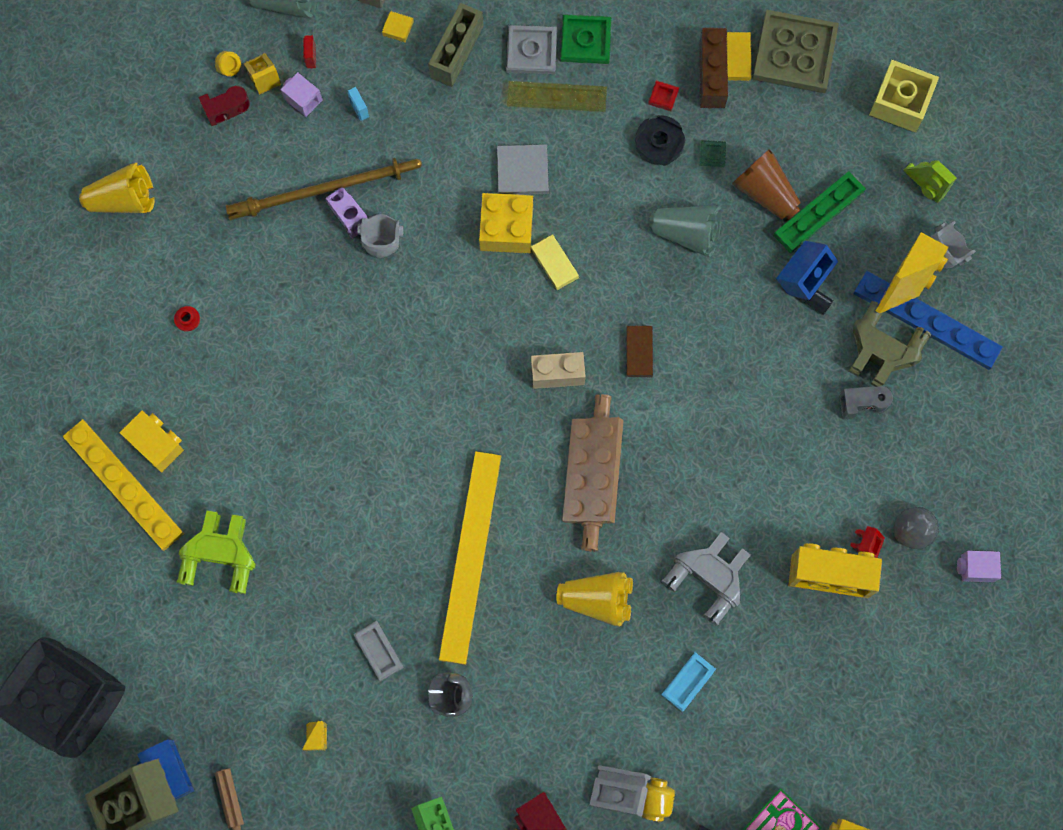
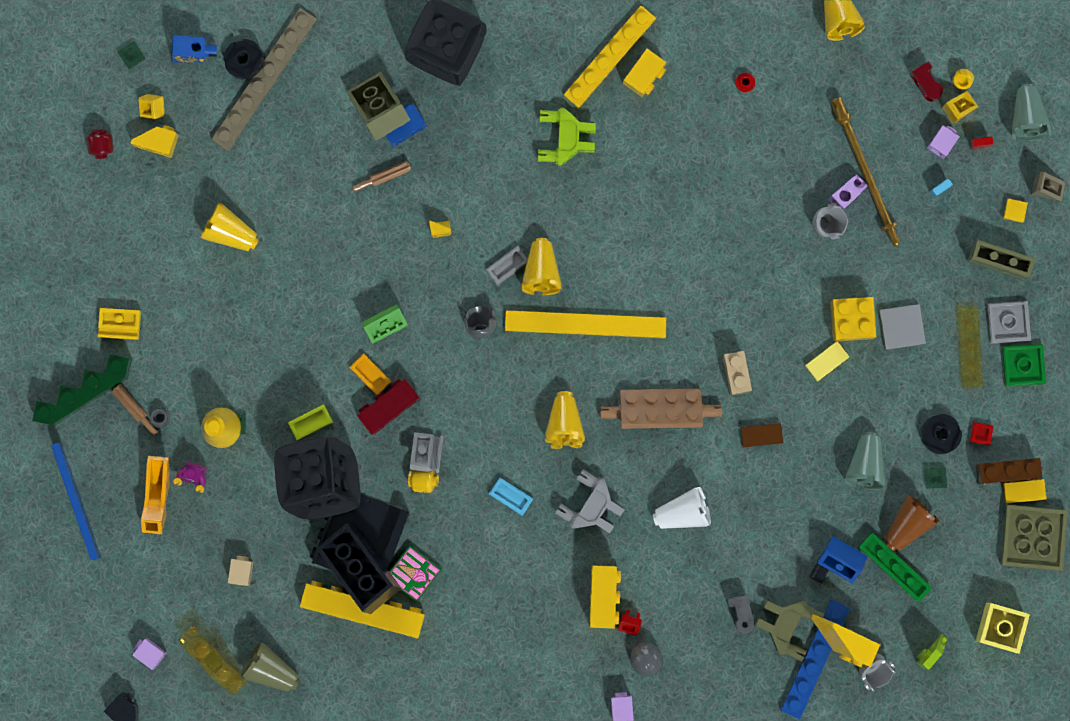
camera: 80 degrees right, 10 degrees up
(390, 604) = (541, 269): none -> yellow cone
(730, 457) = (684, 511): none -> white cone

